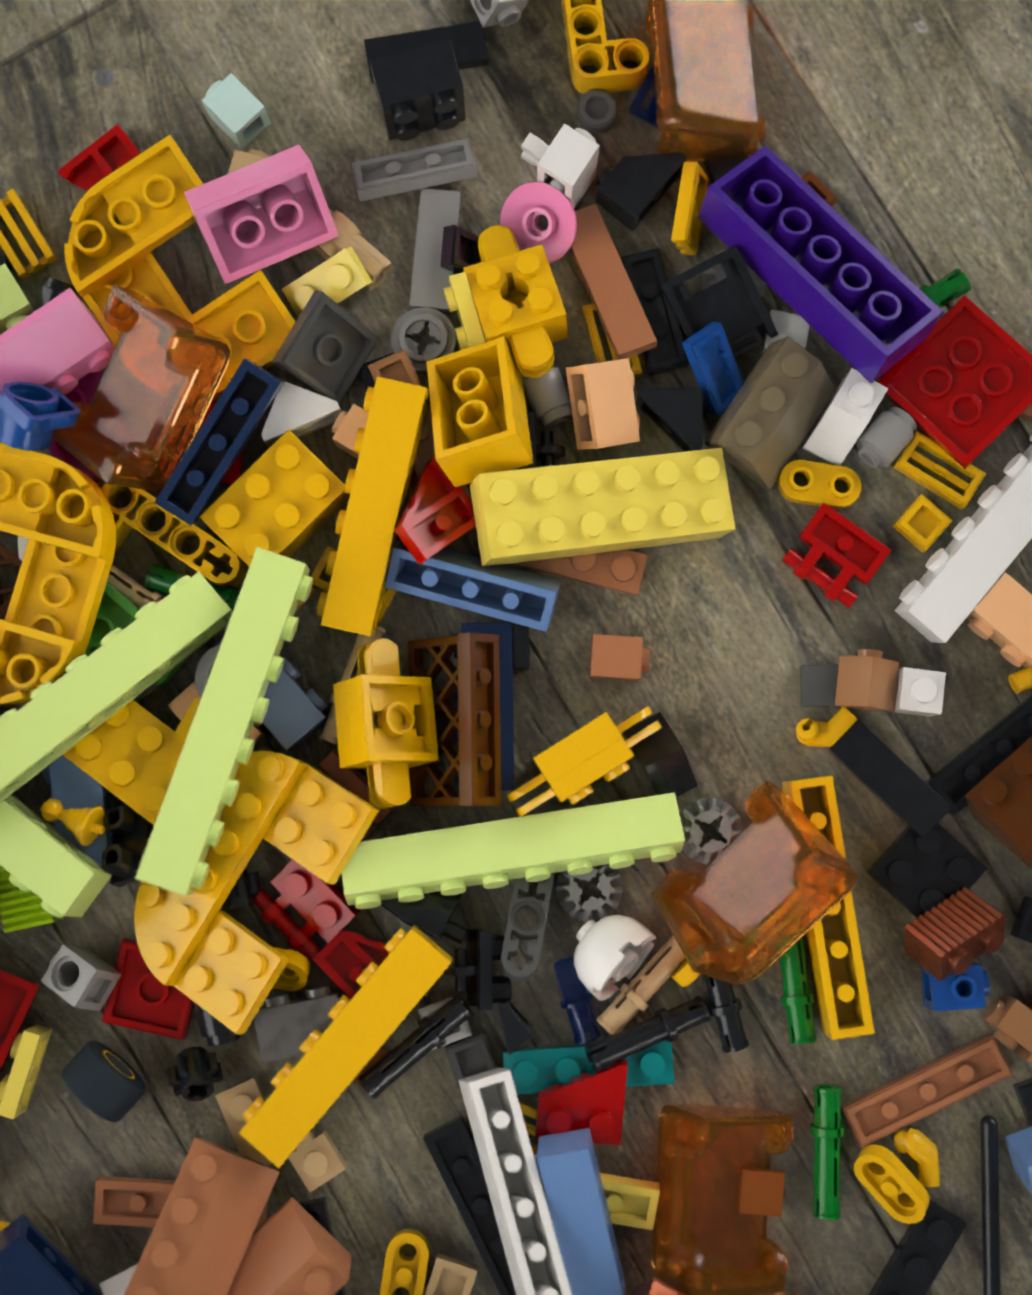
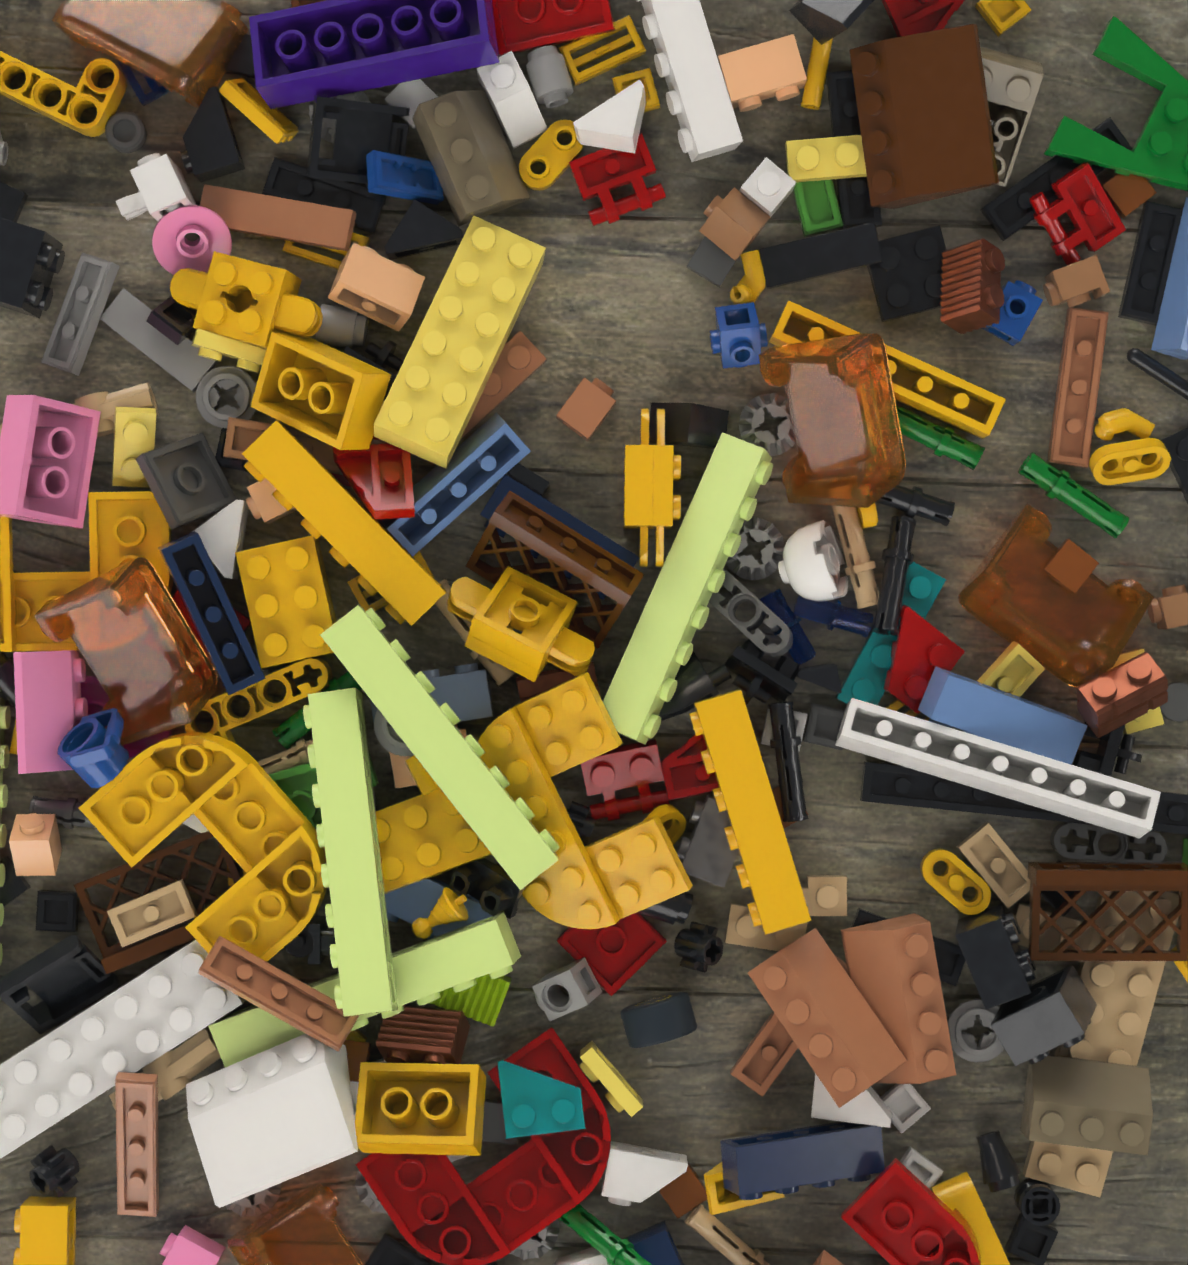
camera: 60 degrees left, 5 degrees up
(526, 992) = (801, 648): none -> clear blue axle
(770, 751) = (738, 335): none -> blue brick
(886, 519) = (614, 122): none -> white slope
(940, 738) = (817, 207): none -> bright green tile
(978, 727) = (825, 158): none -> light yellow plate

